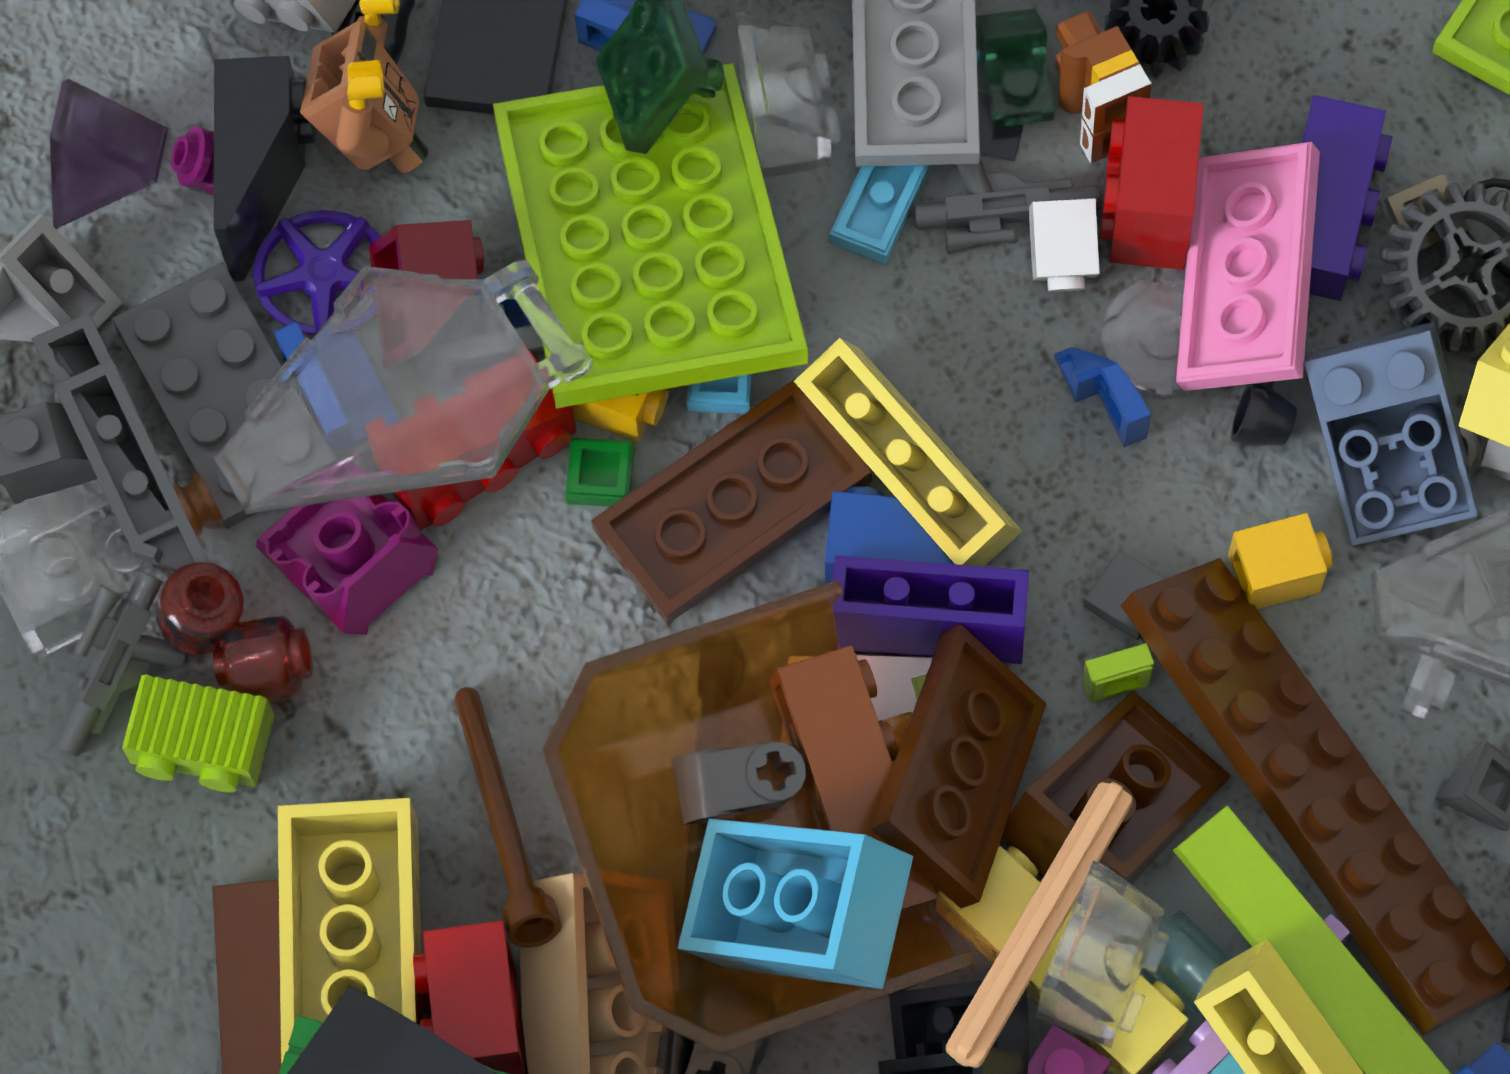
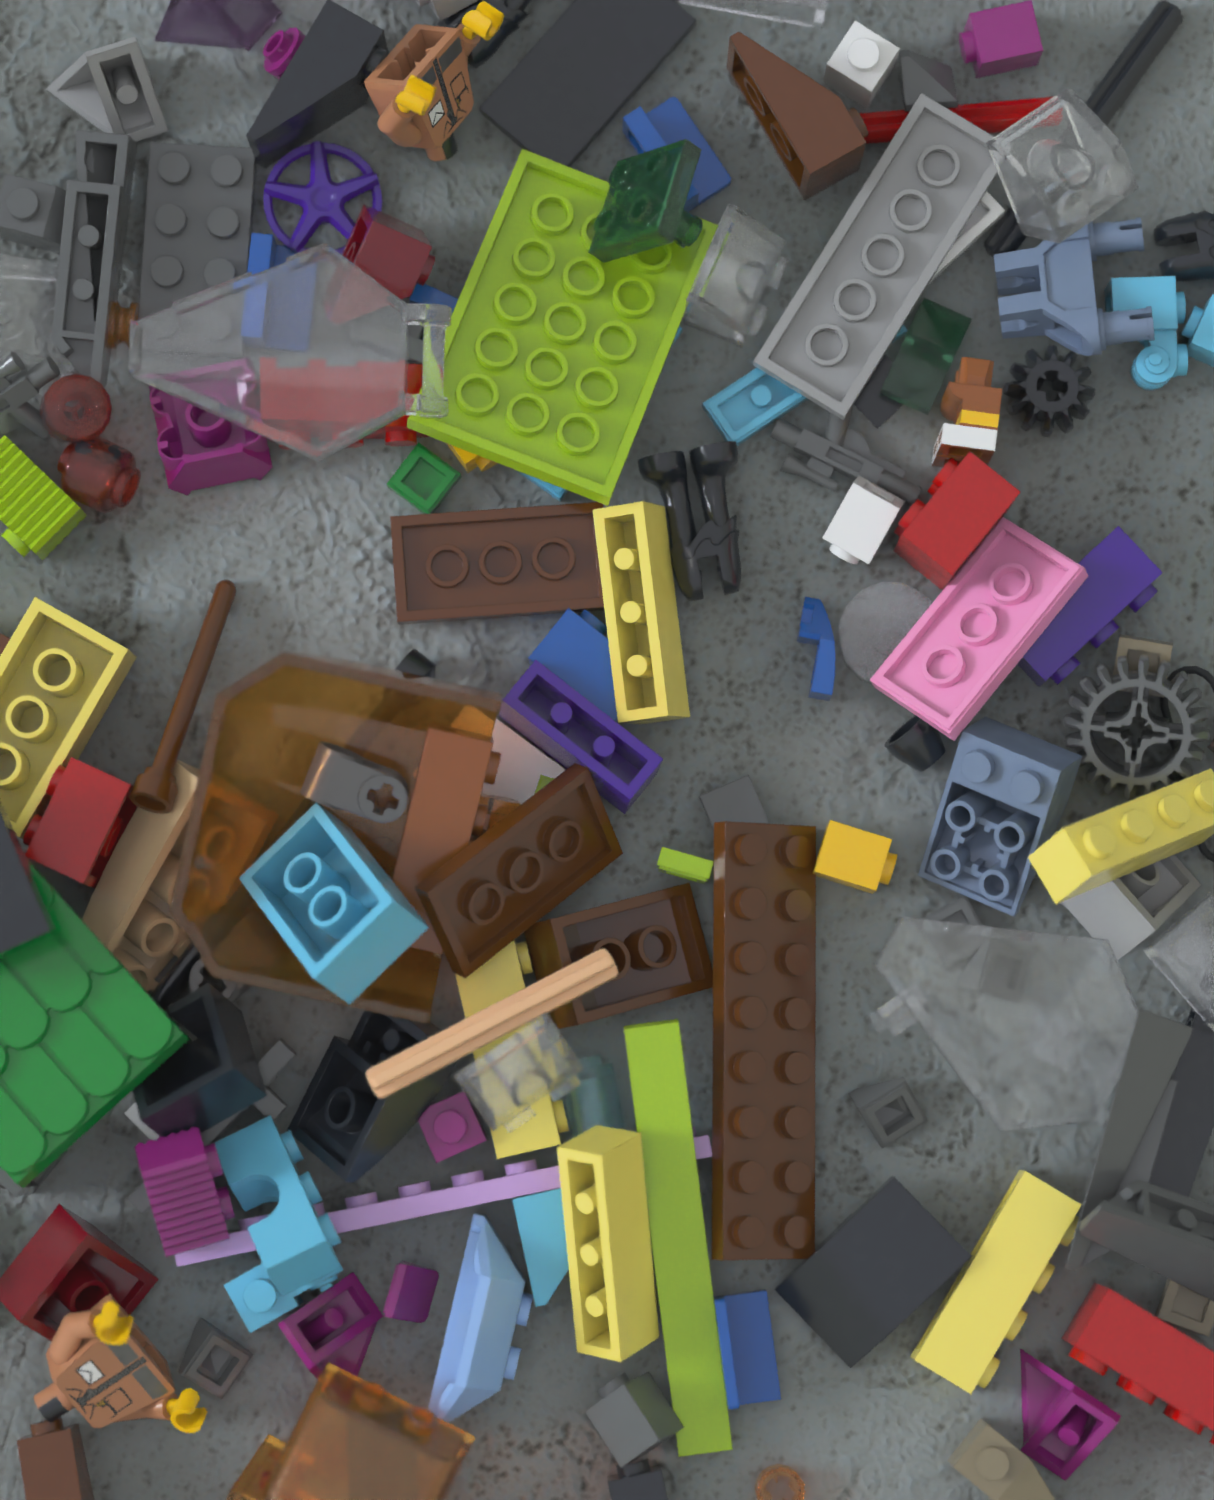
camera: 30 degrees right, 15 degrees up
(876, 284) = (719, 532): none -> black piece

